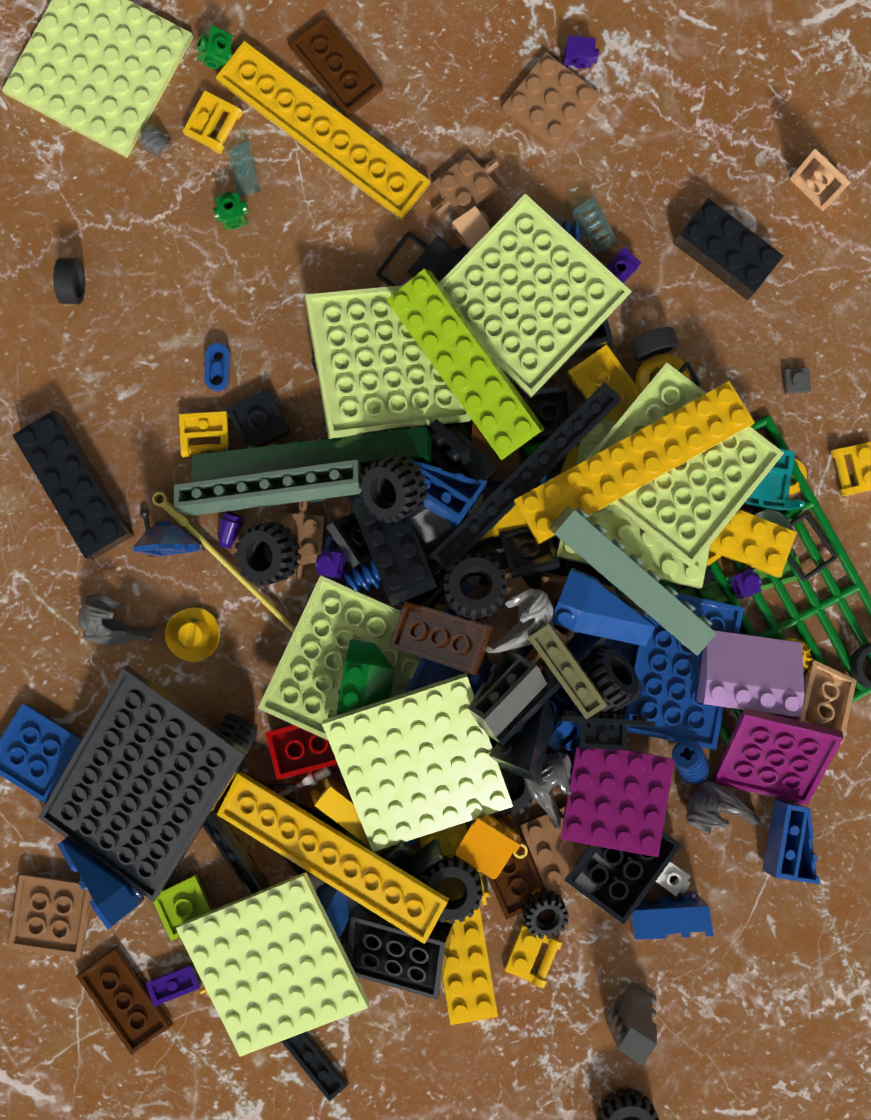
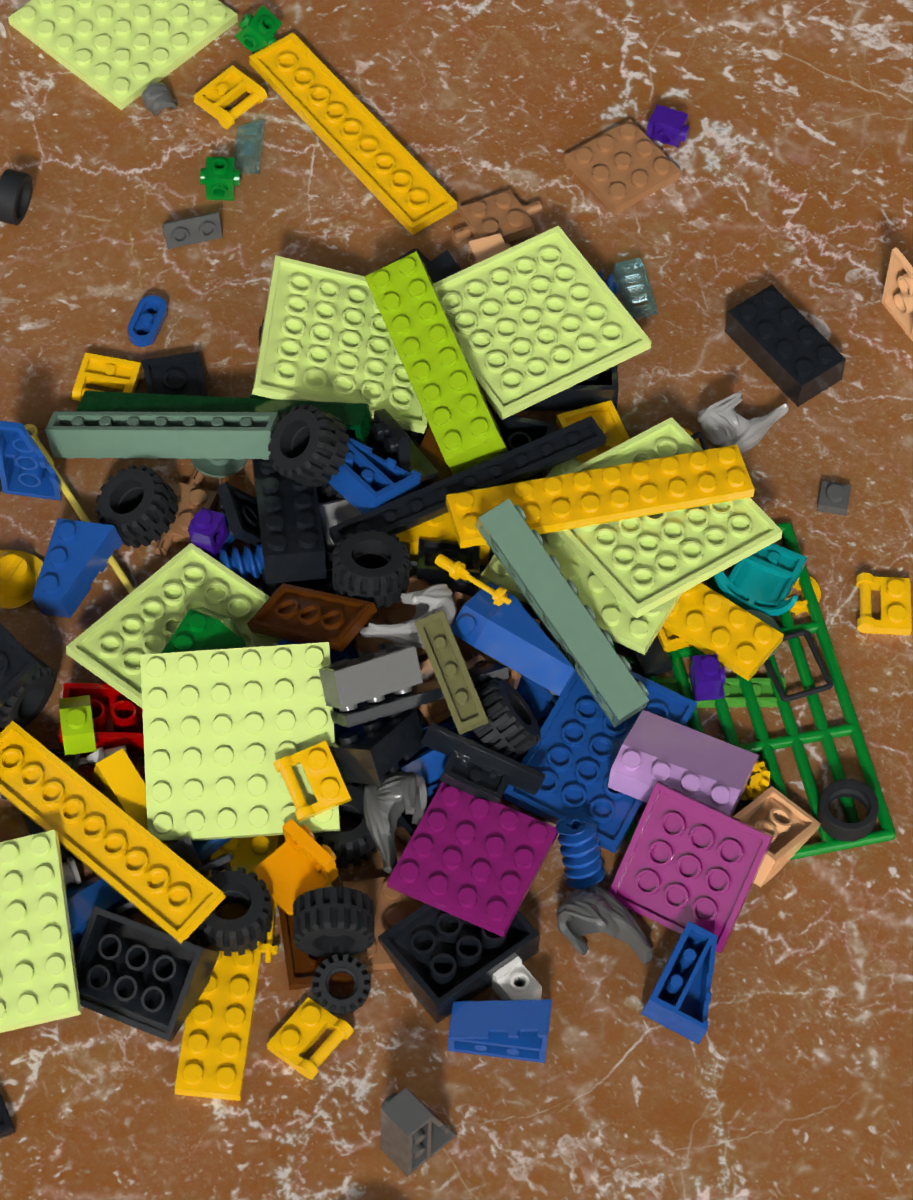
camera: 15 degrees right, 30 degrees down
(217, 271) = (192, 230): none -> dark grey hinge
(229, 529) = (97, 477): dark purple cone -> none
(234, 619) = (71, 564): none -> blue wedge
(287, 770) = (77, 725): none -> lime slope
(335, 66) = (387, 81): reddish brown tile -> none
(491, 780) = (322, 776): none -> yellow plate
(530, 883) = (333, 922): none -> black tyre
(543, 569) = (457, 571): none -> yellow piece
(627, 262) = (661, 334): dark purple brick -> none
(654, 343) = (664, 399): black tyre -> none
(706, 346) = (726, 427): none -> light grey hair

